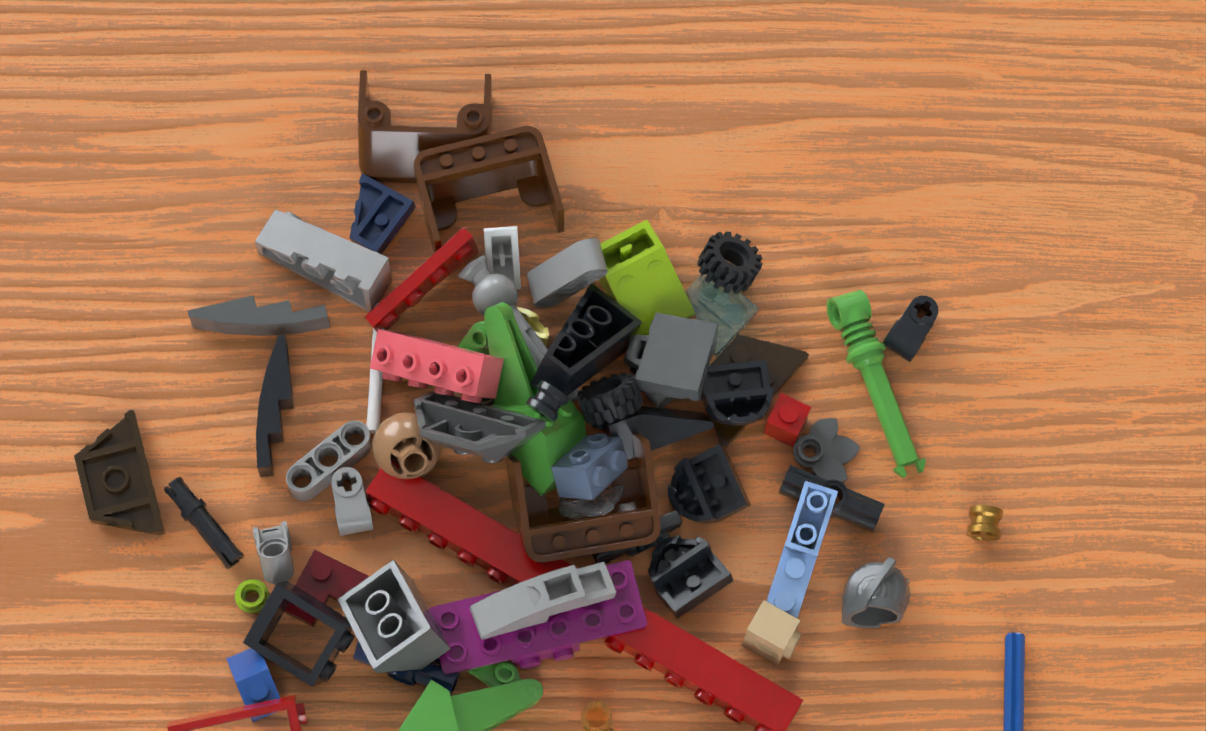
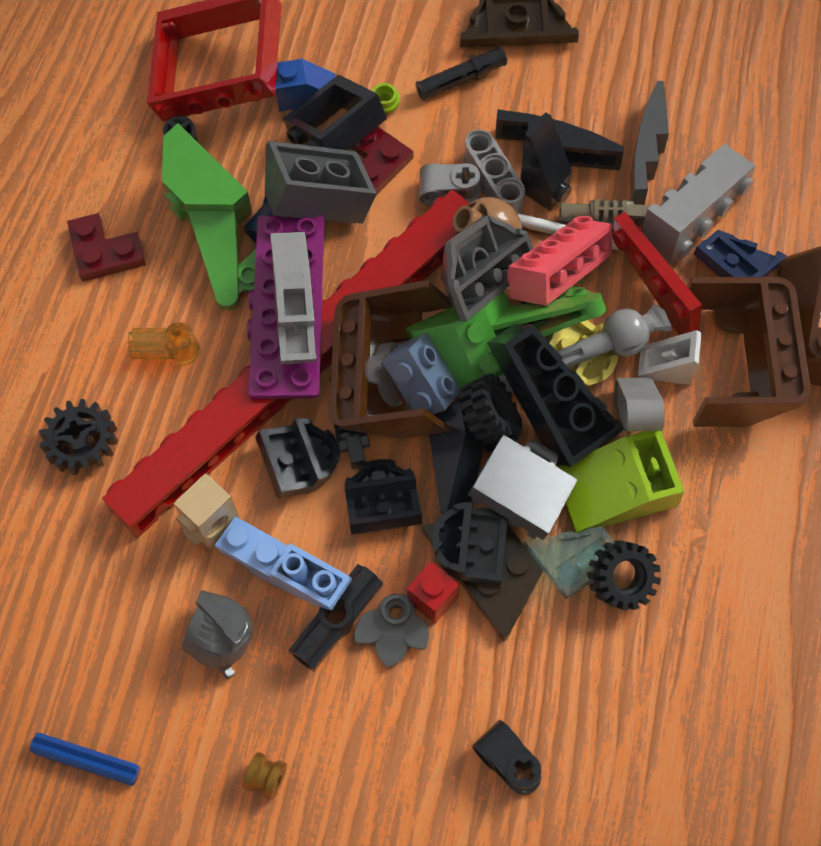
camera: 110 degrees right, 5 degrees down
(274, 552) = (417, 115): light grey piece -> none
(323, 405) = (545, 165): none -> black slope
(351, 346) = (603, 211): none -> dark tan hinge
(547, 401) = (484, 321): black wheel -> none
(850, 316) = (486, 696): bright green piece -> none

